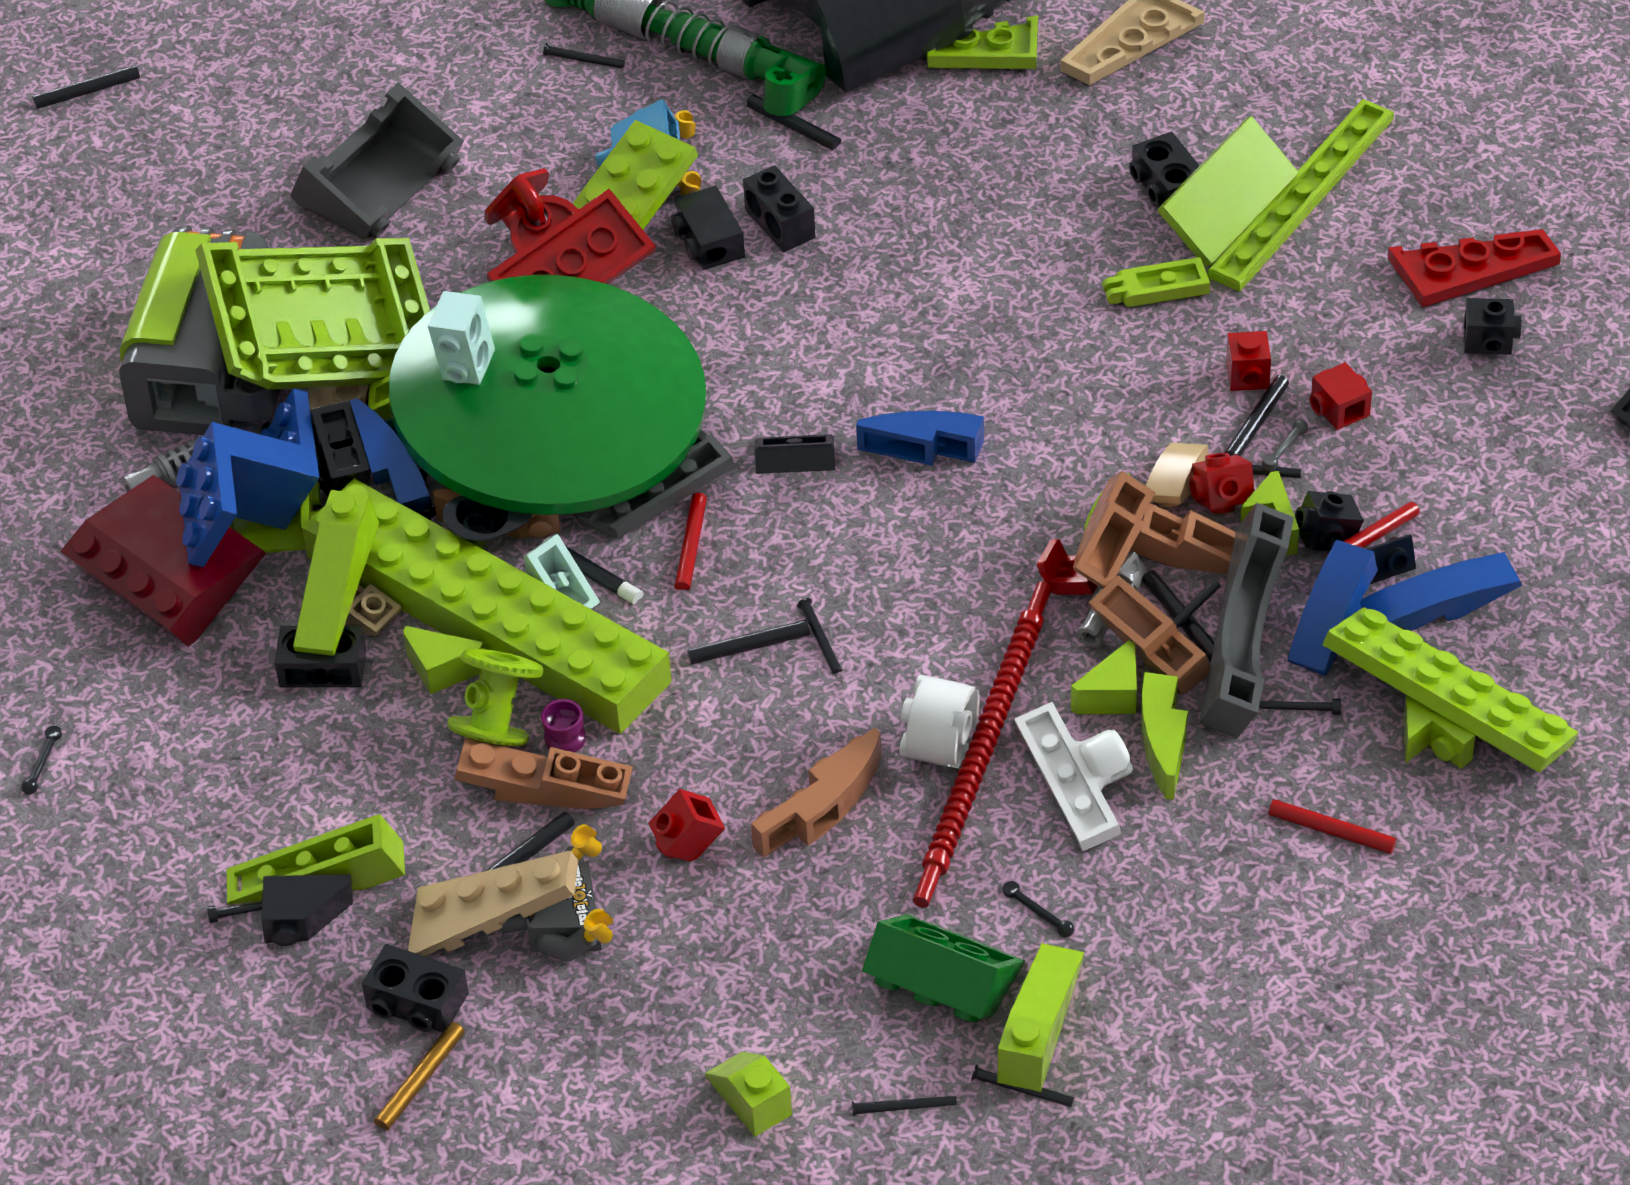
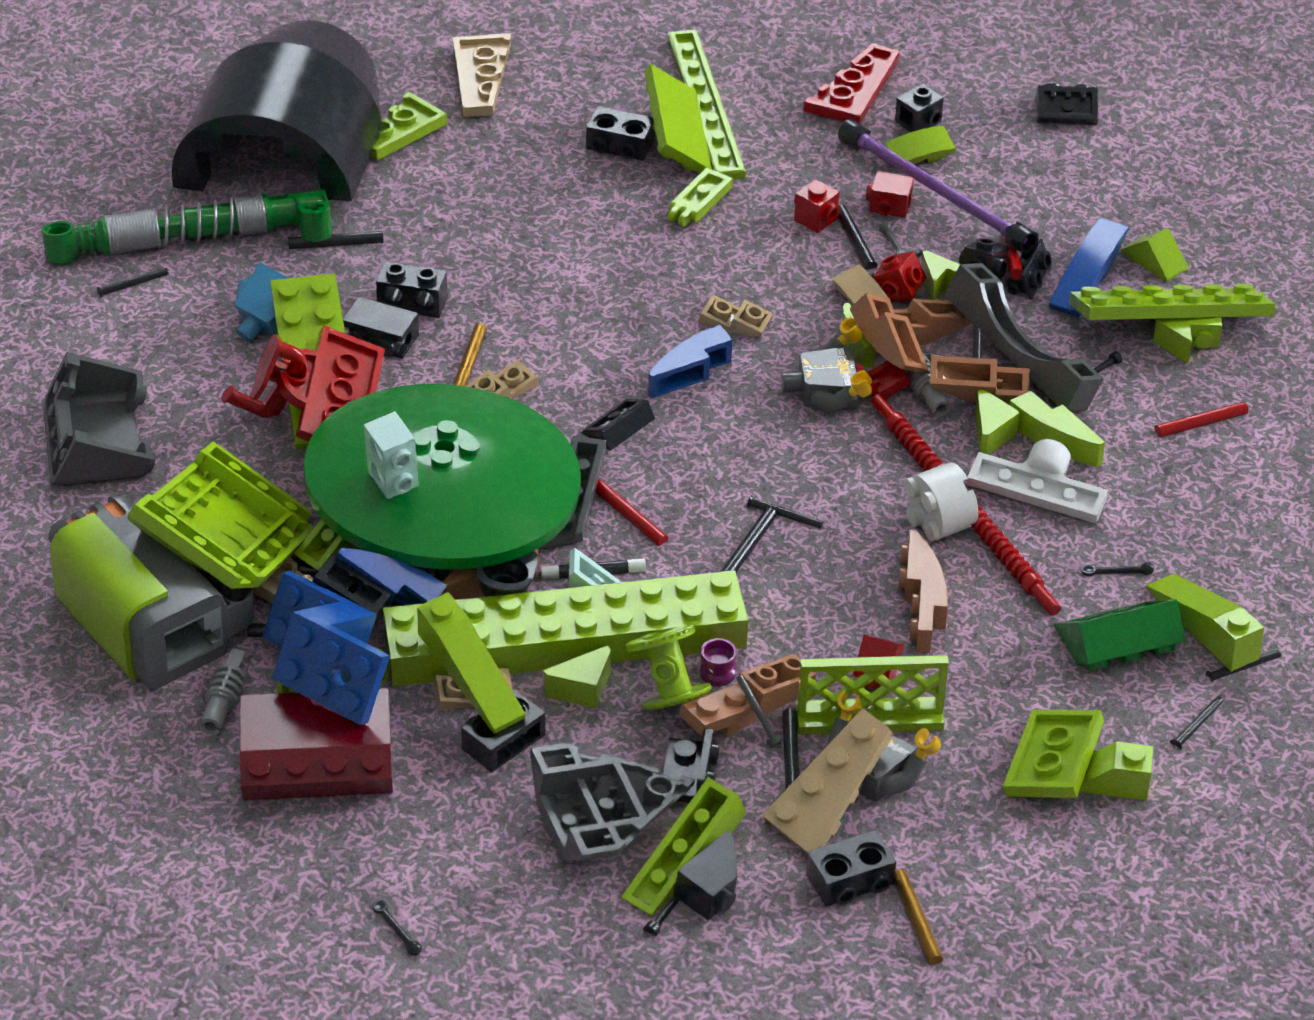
camera: 50 degrees left, 5 degrees down
(298, 770) = (597, 802): none -> dark grey wedge
(421, 801) = (691, 760): none -> bracket
(524, 830) = (774, 739): none -> dark grey piece
(632, 854) = (898, 714): none -> lime fence
(717, 1027) = (1053, 753): none -> lime plate
(733, 349) = (509, 382): none -> tan slope
(753, 306) = (470, 355): none -> pearl gold bar
(1021, 529) = (829, 373): none -> dark grey torso
(1031, 421) = (744, 320): none -> tan slope
(1332, 600) = (1054, 302): blue slope -> none
(1389, 516) = (1016, 235): none -> medium lavender hose
(1442, 364) = (923, 144): none -> lime slope
(1527, 634) = (1158, 254): none -> lime slope

